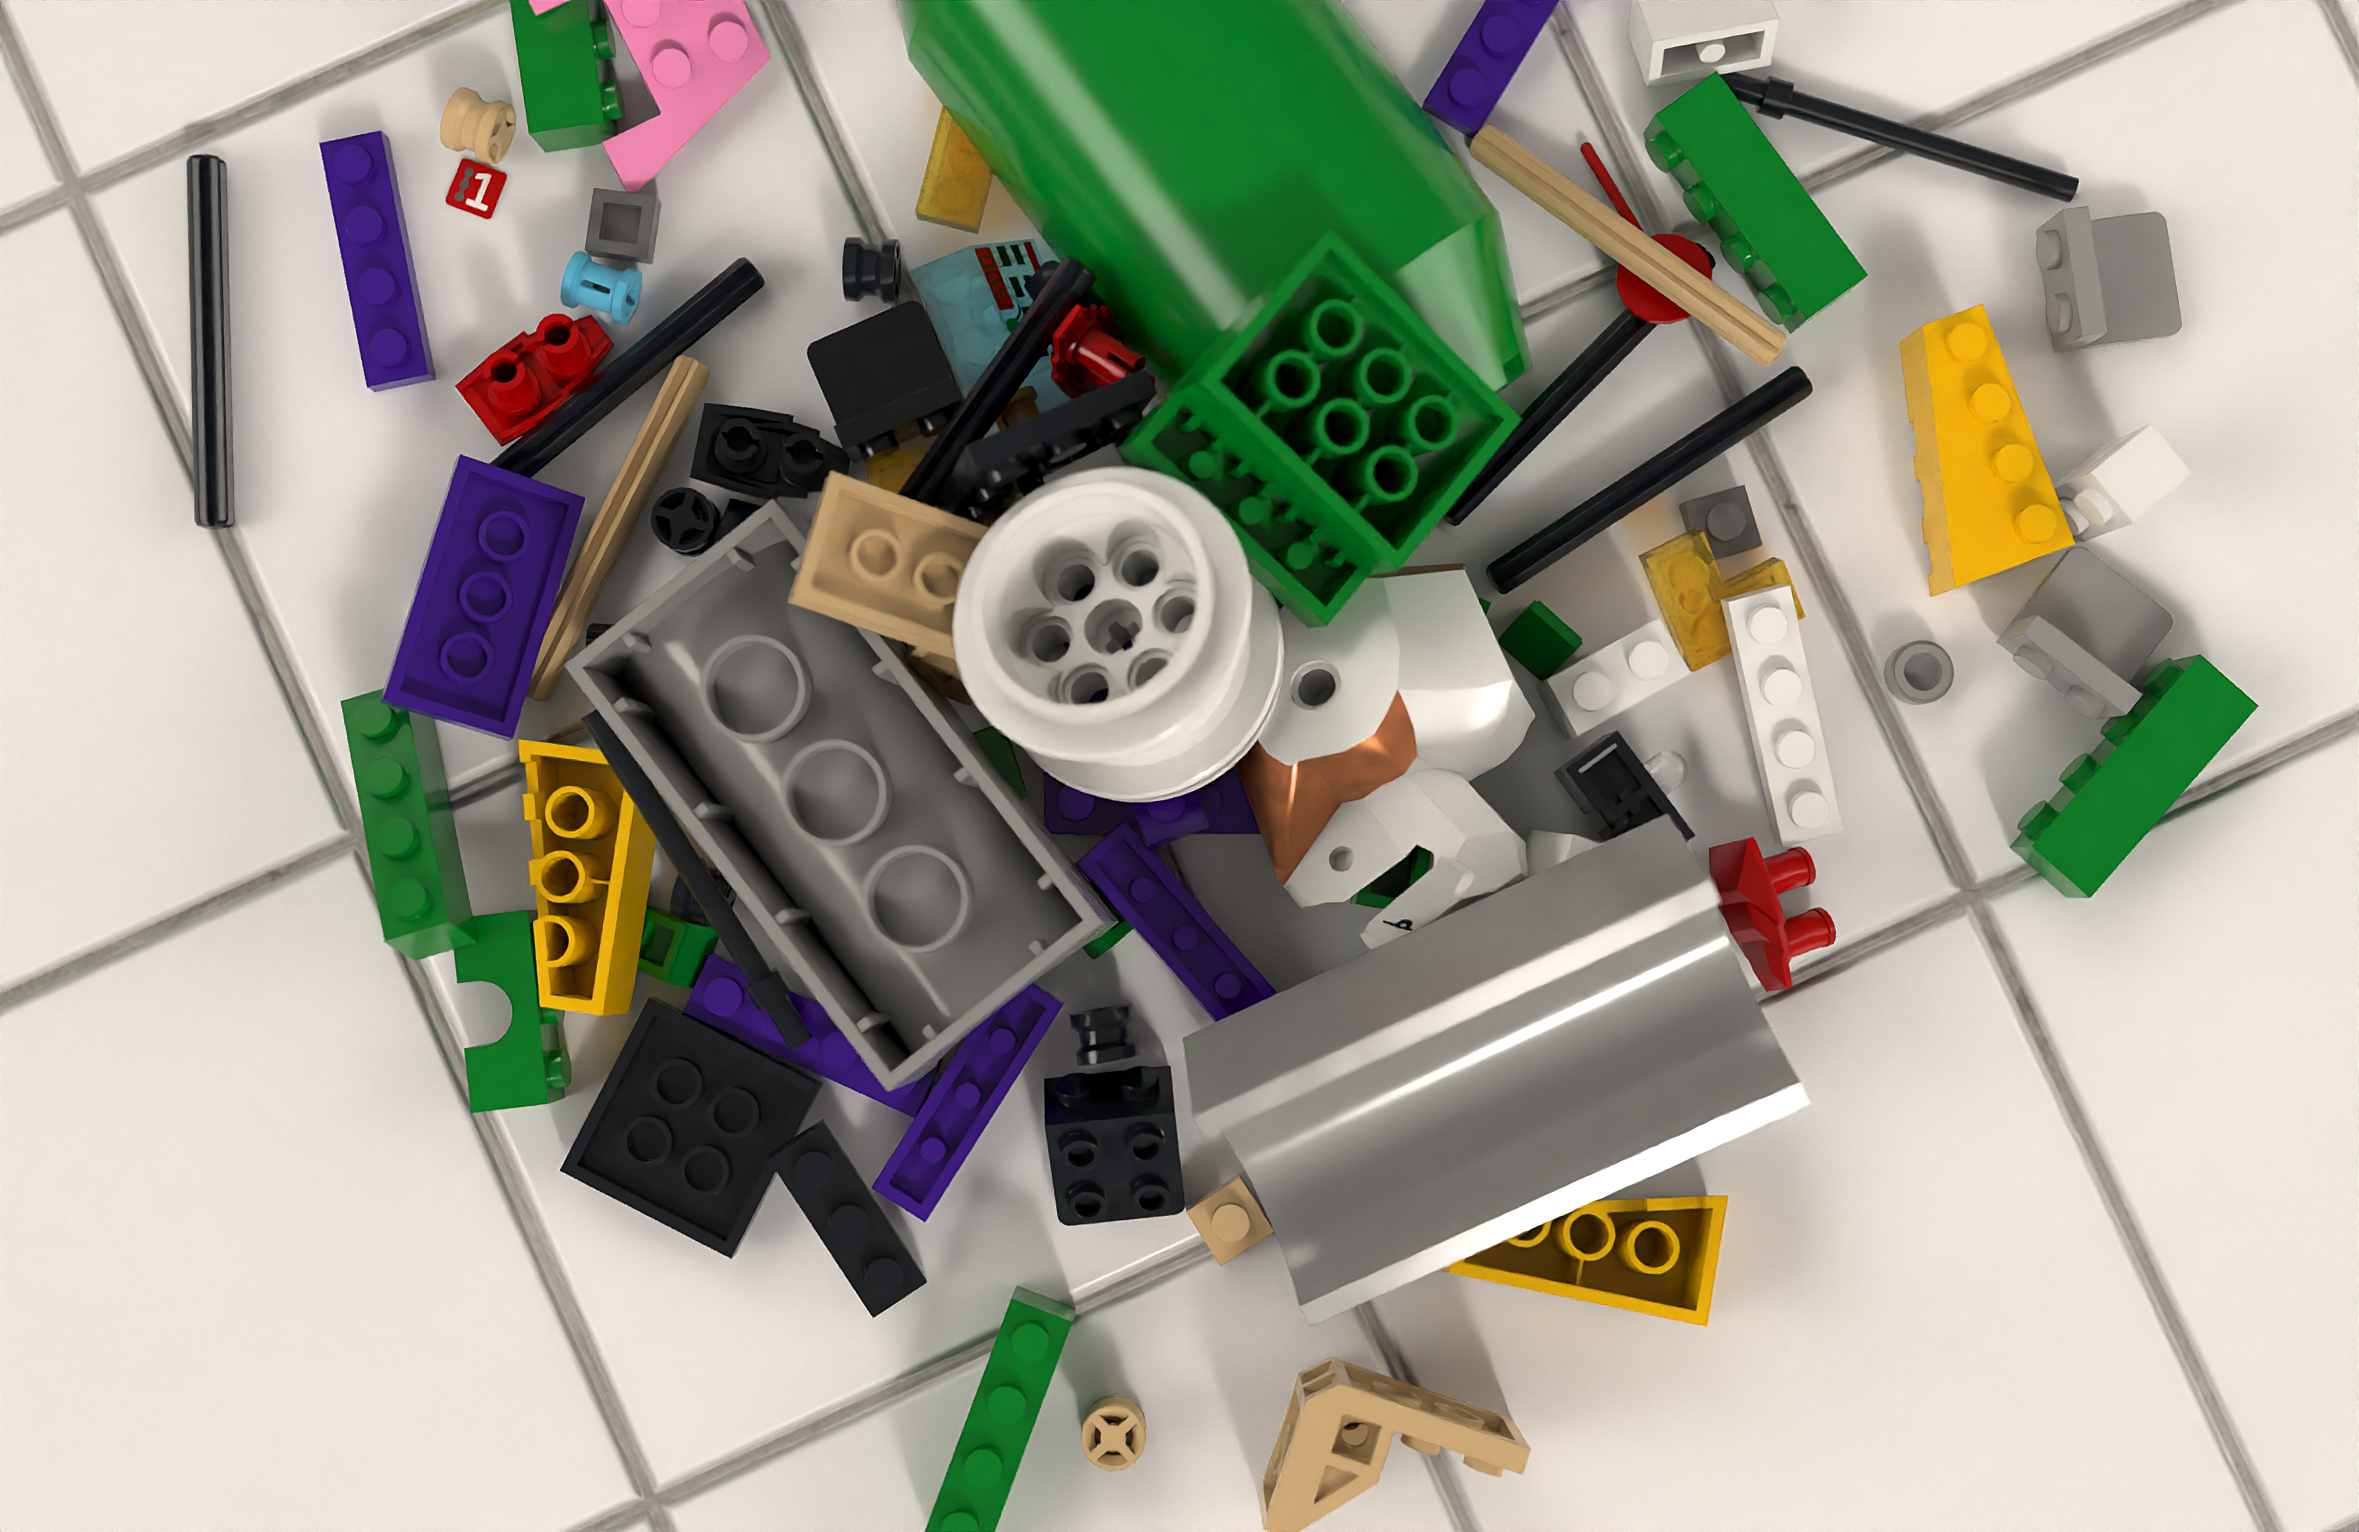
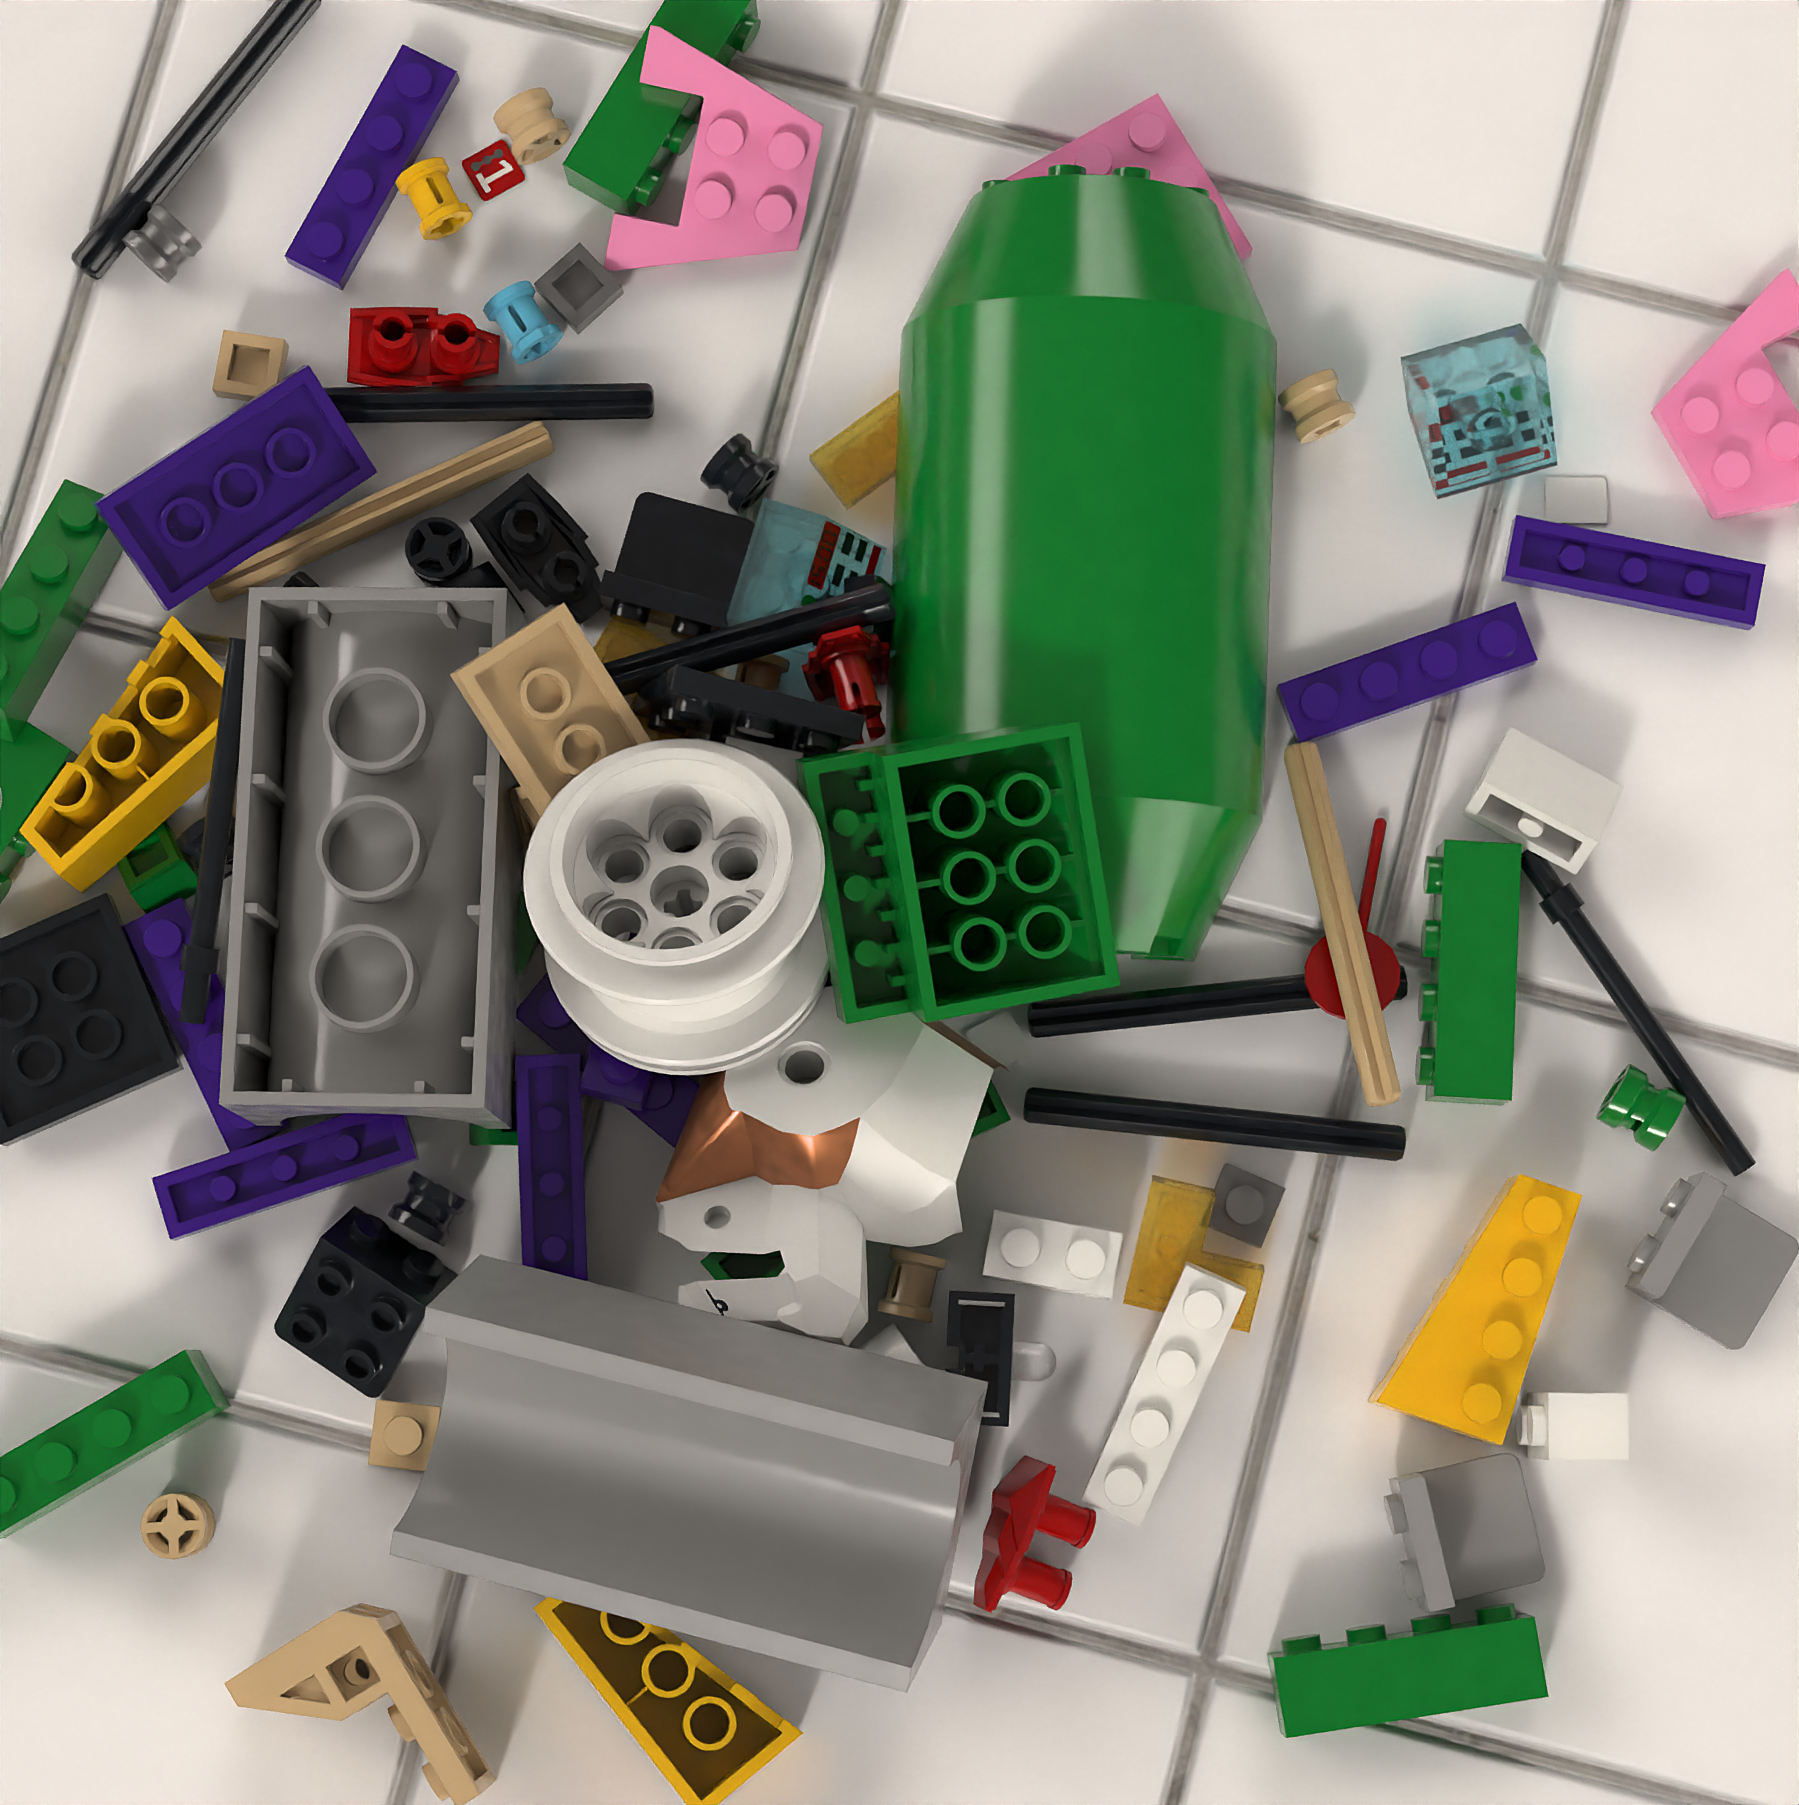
camera: 45 degrees right, 5 degrees down
(259, 454) = (162, 243): none -> flat silver wheel
(411, 495) = (248, 365): none -> tan plate
(447, 246) = (433, 198): none -> yellow bush
(847, 1218) = (114, 1187): black plate -> none
(1522, 789) = (911, 1284): none -> tan bush
(1539, 640) = (1021, 1179): green slope -> none
(1919, 672) = (1306, 1452): light grey tile -> none
(1962, 204) = (1641, 1107): none -> green wheel

